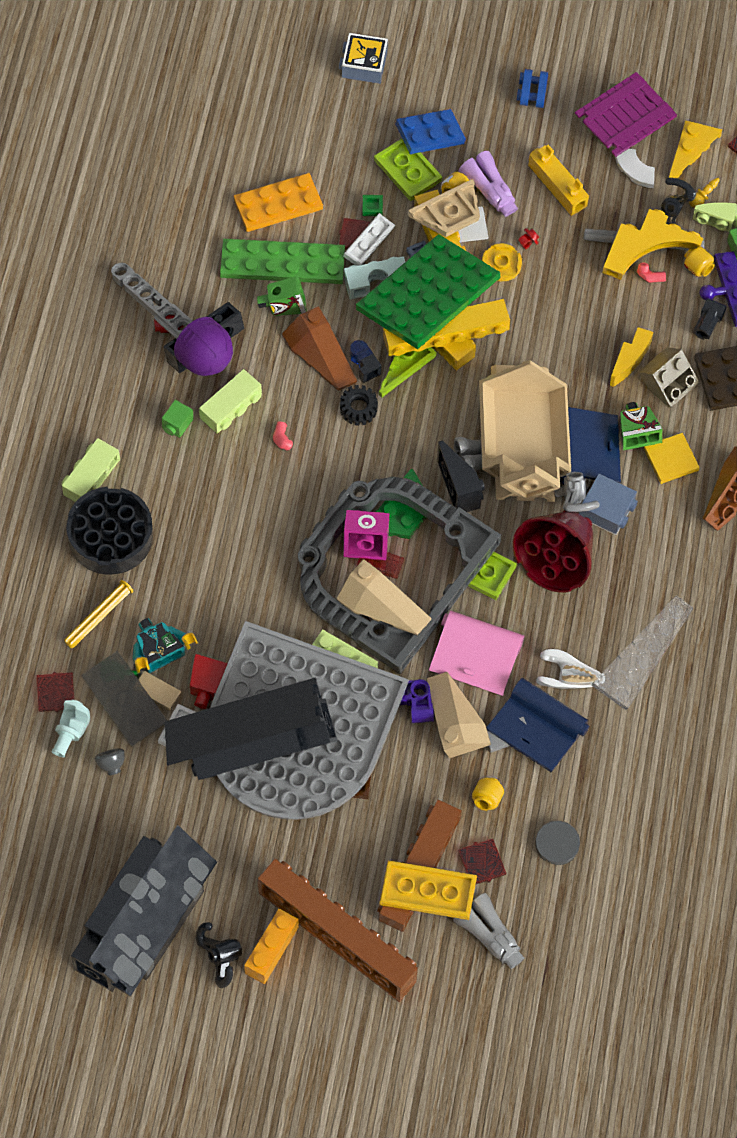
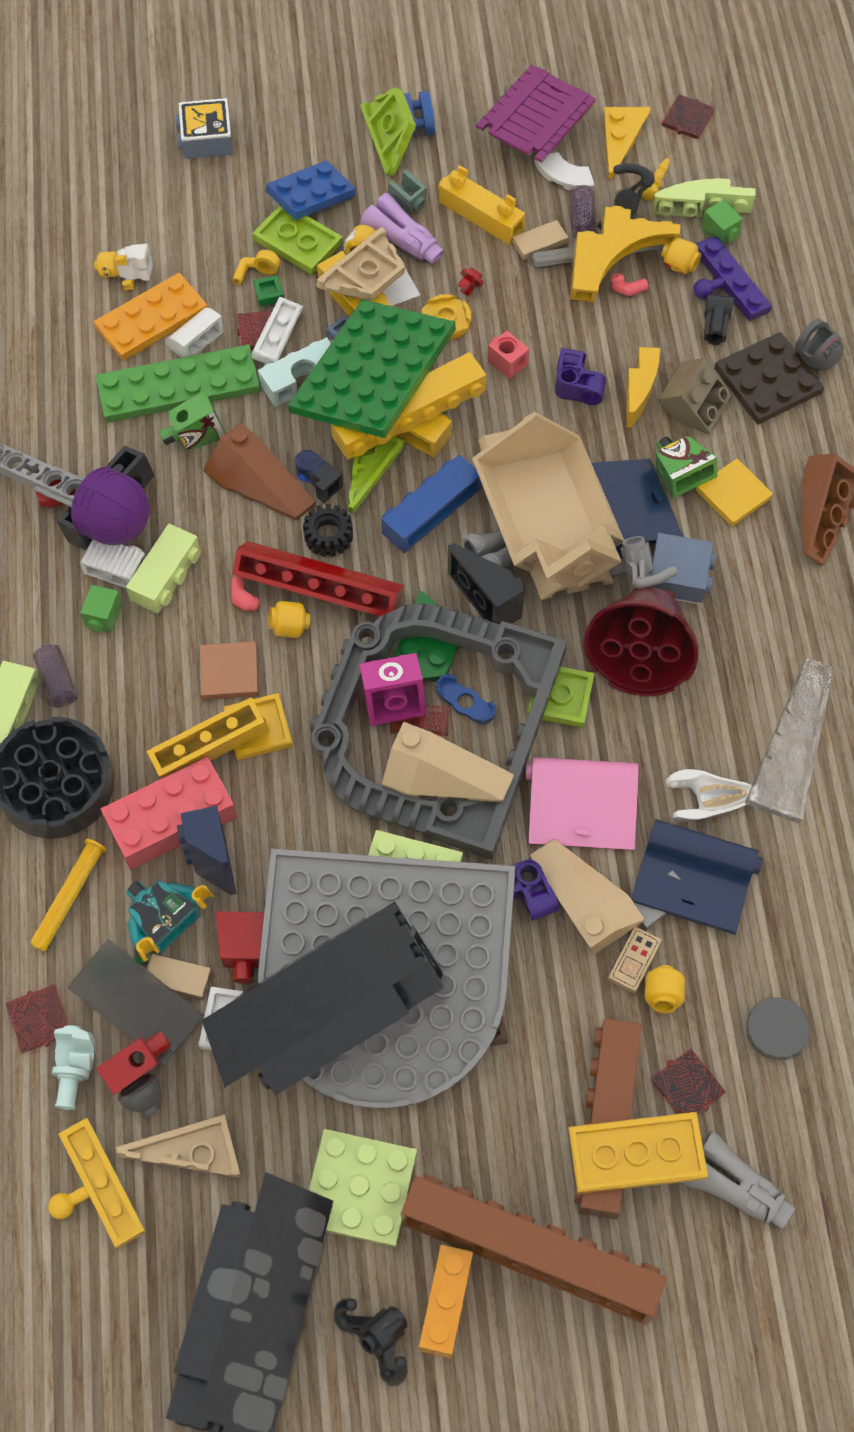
camera: 15 degrees left, 0 degrees up
(67, 809) = (99, 1184): none -> yellow plate
(102, 740) = (123, 1070): none -> red torso
(131, 459) = (55, 676): none -> pin
(137, 804) = (195, 1147): none -> tan wing
(183, 578) = (148, 818): none -> coral brick
(195, 387) = (112, 562): none -> white brick
(202, 608) = (207, 847): none -> dark blue slope
(225, 535) = (209, 738): none -> yellow brick
(240, 860) = (366, 1183): none -> yellowish green plate
(255, 488) = (228, 670): none -> nougat tile
(264, 535) = (278, 735): none -> yellow tile
(273, 155) = (129, 263): none -> piece
(307, 226) = (196, 333): none -> white brick
(309, 463) = (288, 619): none -> yellow head
(338, 439) = (317, 579): none -> red brick
(376, 181) = (265, 262): none -> yellow plate
(410, 547) = (451, 690): none -> blue piece
(440, 405) = (430, 503): none -> blue brick
(475, 769) = (634, 960): none -> tan tile
(505, 155) = (410, 193): none -> sand green window
(508, 95) = (390, 127): none -> lime wing
(537, 312) = (508, 354): none -> coral brick
(588, 345) = (576, 382): none -> dark purple piece
(595, 218) = (540, 239): none -> tan tile
(636, 204) = (582, 209): none -> pin

